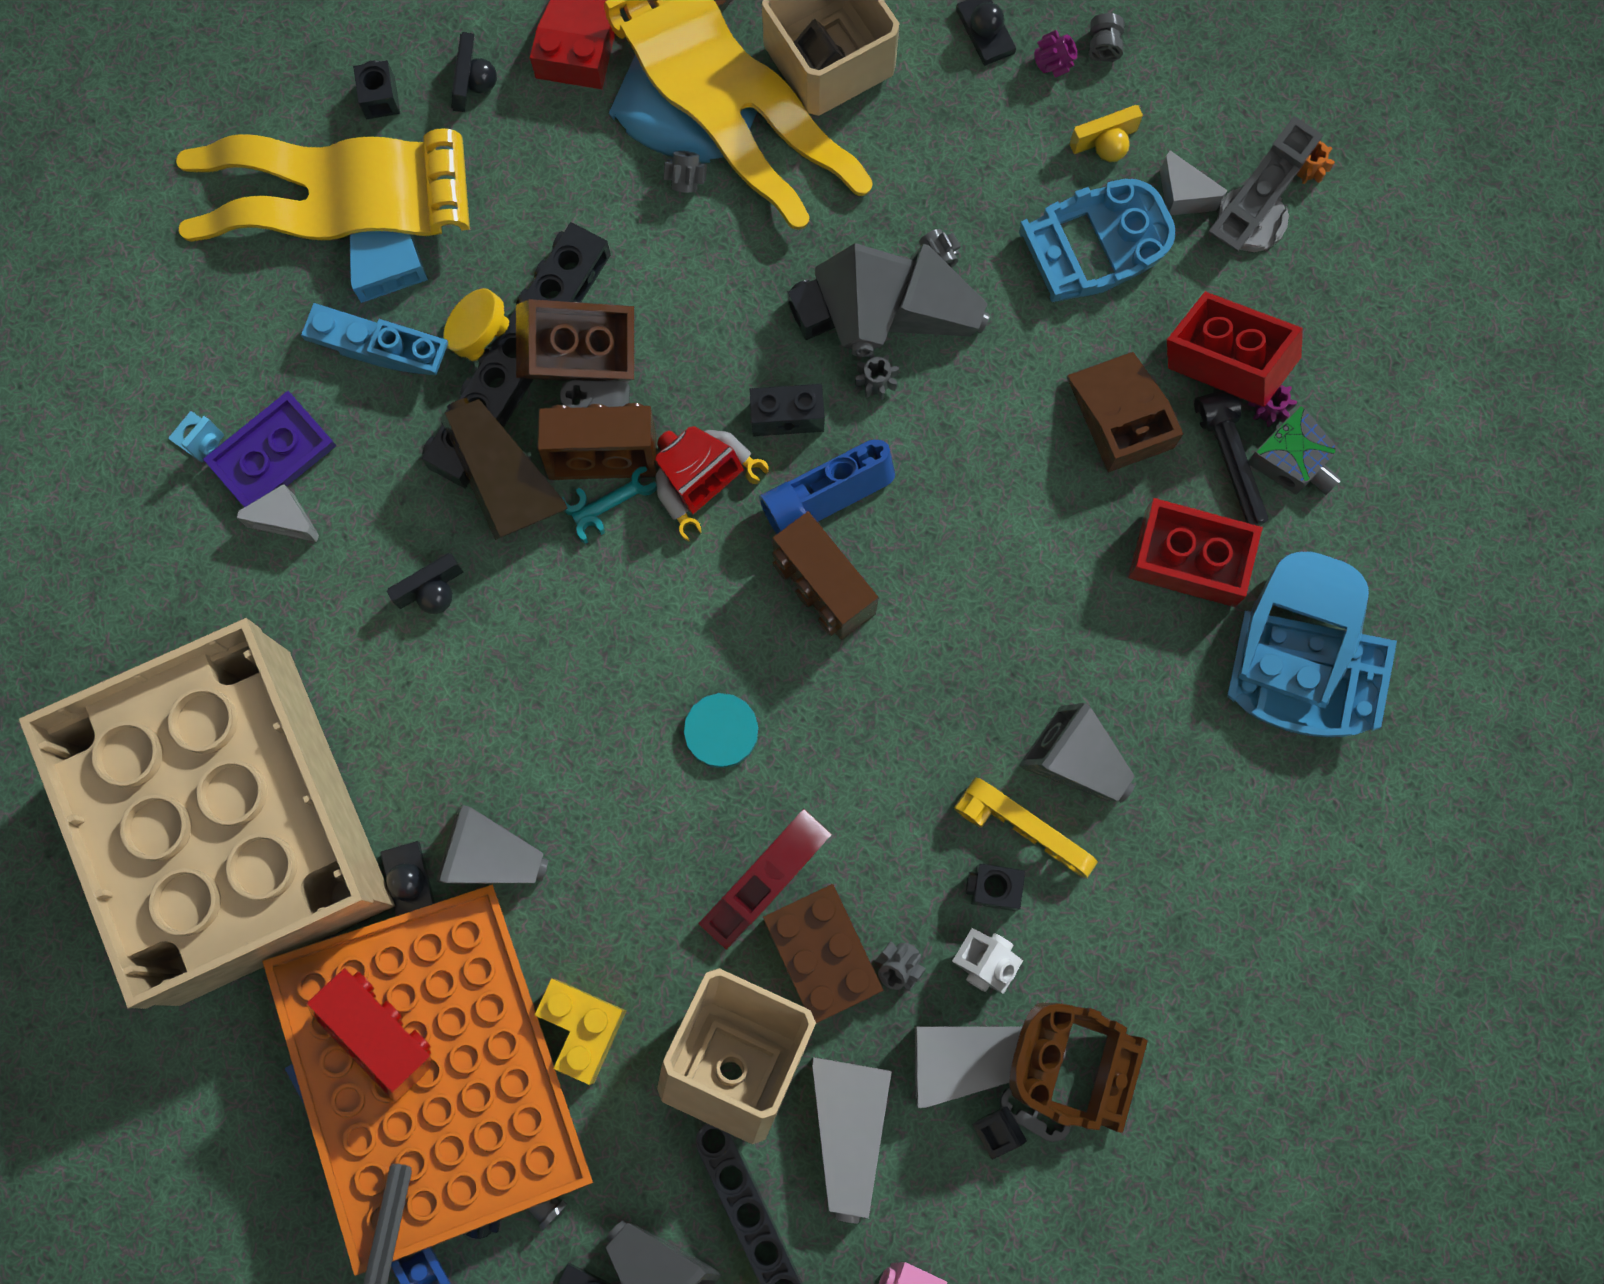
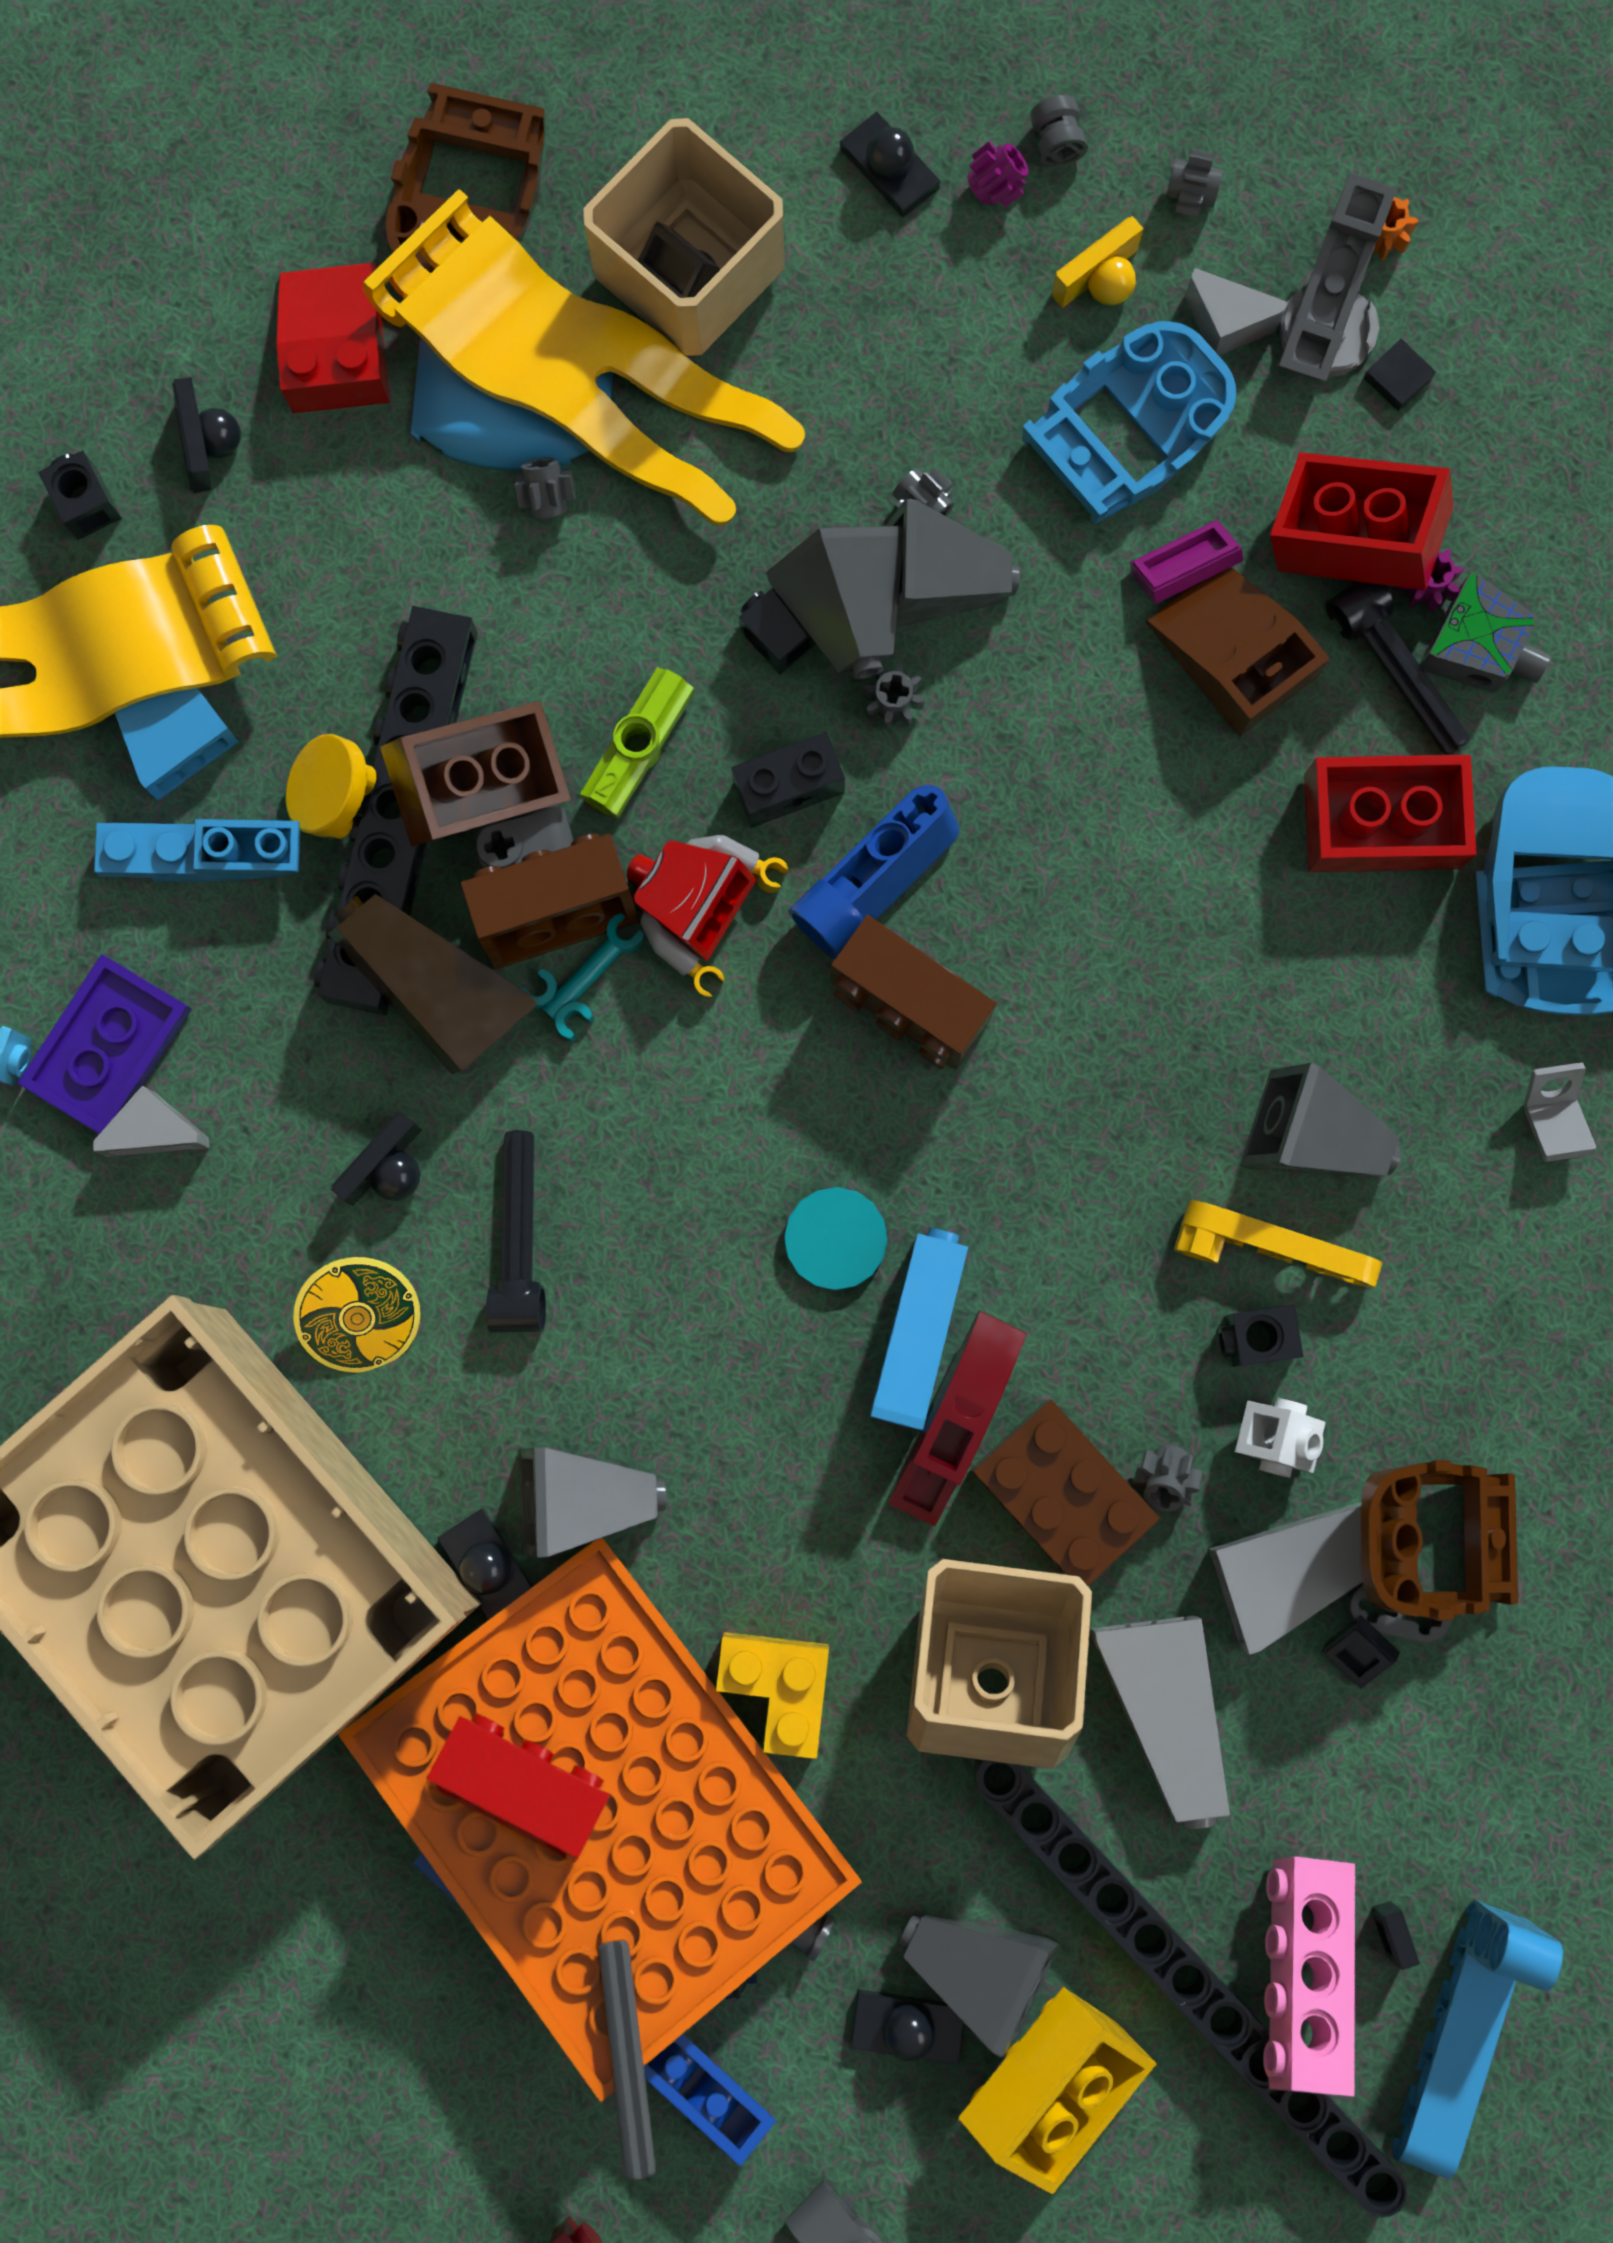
camera: 15 degrees left, 5 degrees up
(376, 681) = (356, 1314): none -> shield
(488, 705) = (517, 1301): none -> black axle
(709, 341) = (652, 716): none -> lime piece
(756, 809) = (919, 1330): none -> dark azure slope
(1106, 344) = (1186, 561): none -> magenta tile
(1188, 96) = (1194, 183): none -> dark grey gear
(1253, 796) = (1556, 1114): none -> light grey bracket
(1292, 262) = (1399, 374): none -> black tile

